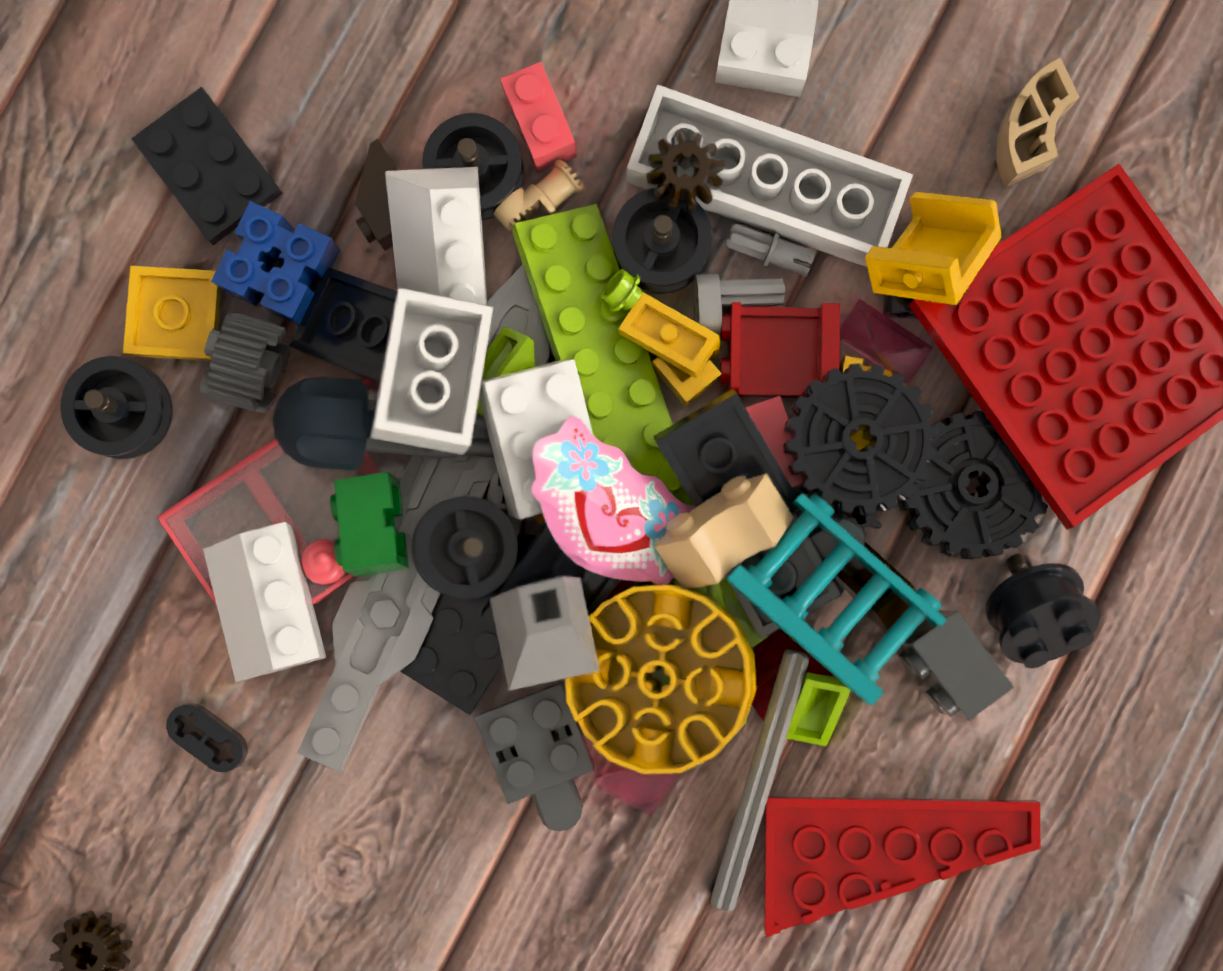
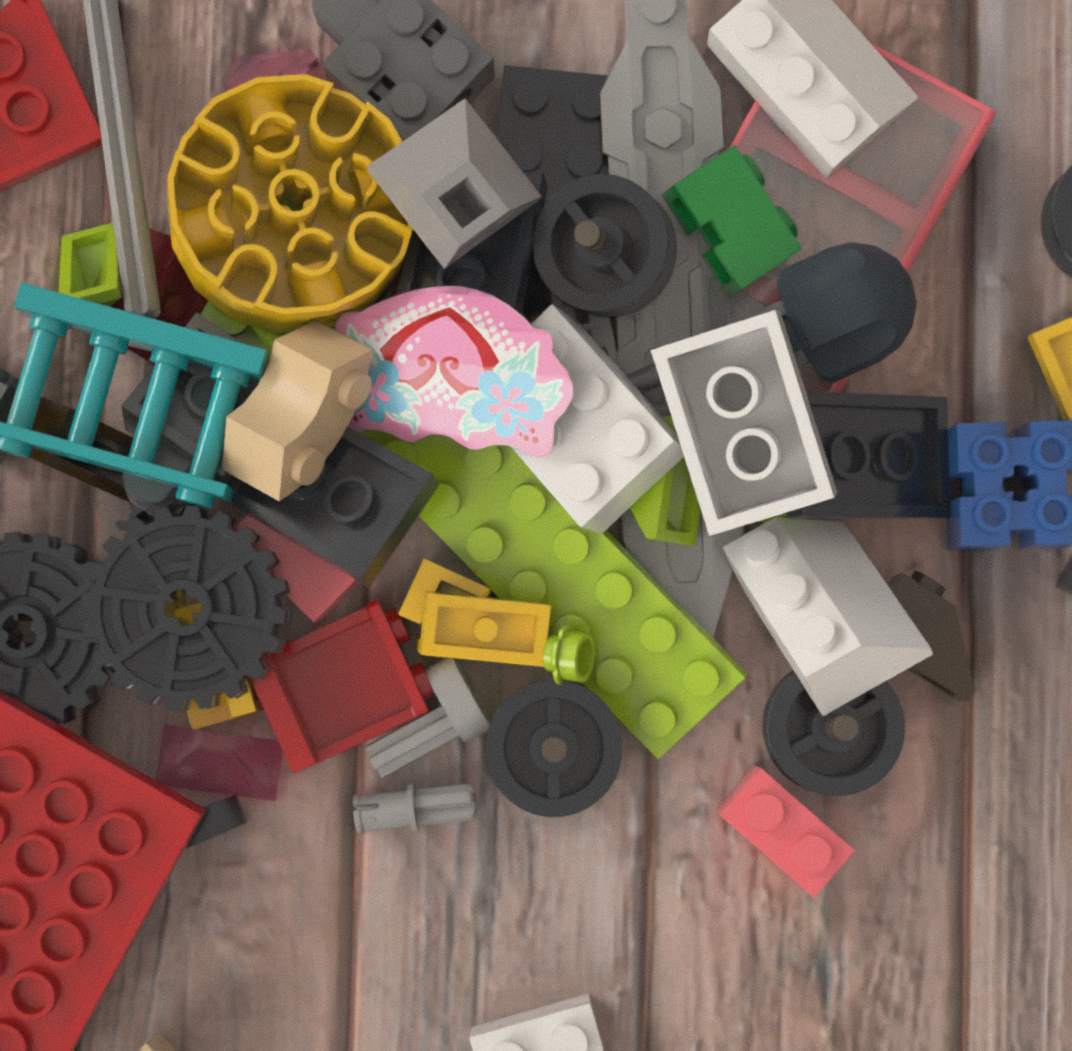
camera: 150 degrees right, 0 degrees up
(245, 362) = (986, 344): dark grey brick -> none
(320, 562) = (771, 149): coral plate -> none
(546, 194) = (725, 741): tan connector -> none
(686, 156) = (569, 855): dark brown gear -> none
(779, 177) = (457, 892): white brick -> none
(937, 249) = (202, 896): yellow panel -> none

